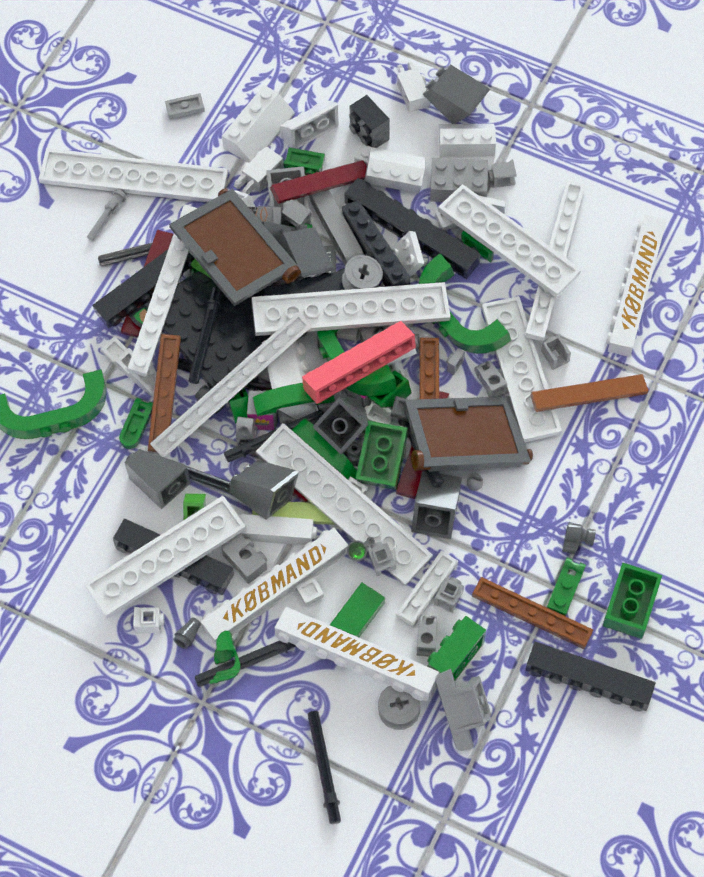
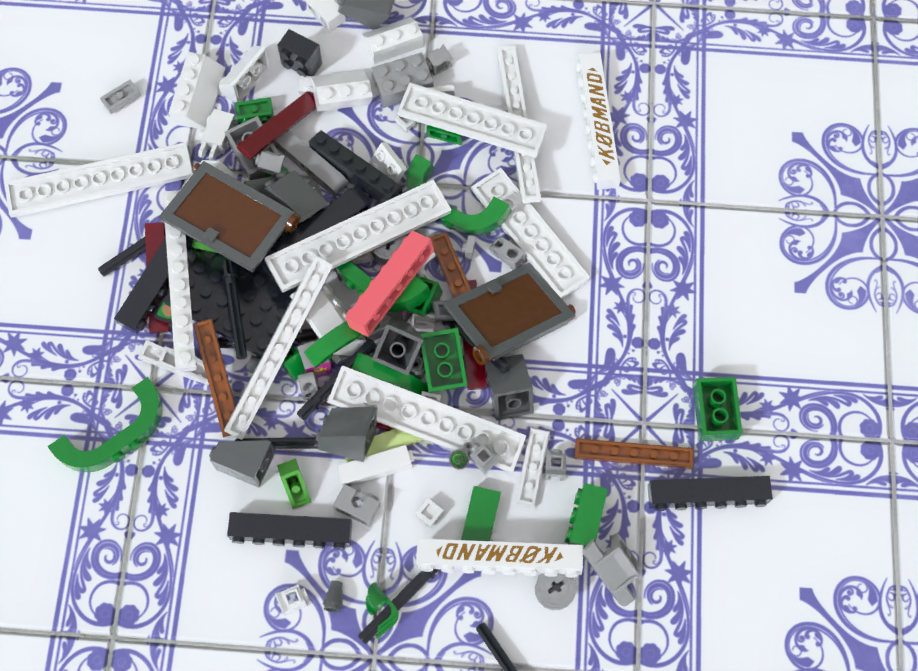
camera: 25 degrees left, 5 degrees up
(111, 207) = (93, 205): light grey pin -> none
(135, 424) = (201, 415): green plate -> none
(165, 556) = (284, 535): white plate -> none
(267, 213) = (244, 172): light grey leg -> none
(276, 585) = (395, 521): white brick -> none
(361, 265) = (346, 198): light grey piece -> none
(400, 220) = (370, 135): black brick -> none
(426, 635) = (552, 512): light grey leg -> none
(472, 484) = (534, 355): light grey hinge -> none
(555, 343) = (558, 202): light grey window -> none
(566, 587) = (653, 418): green plate -> none
(574, 535) = (641, 367): dark grey piece -> none
(589, 393) = (598, 234): dark orange tile -> none

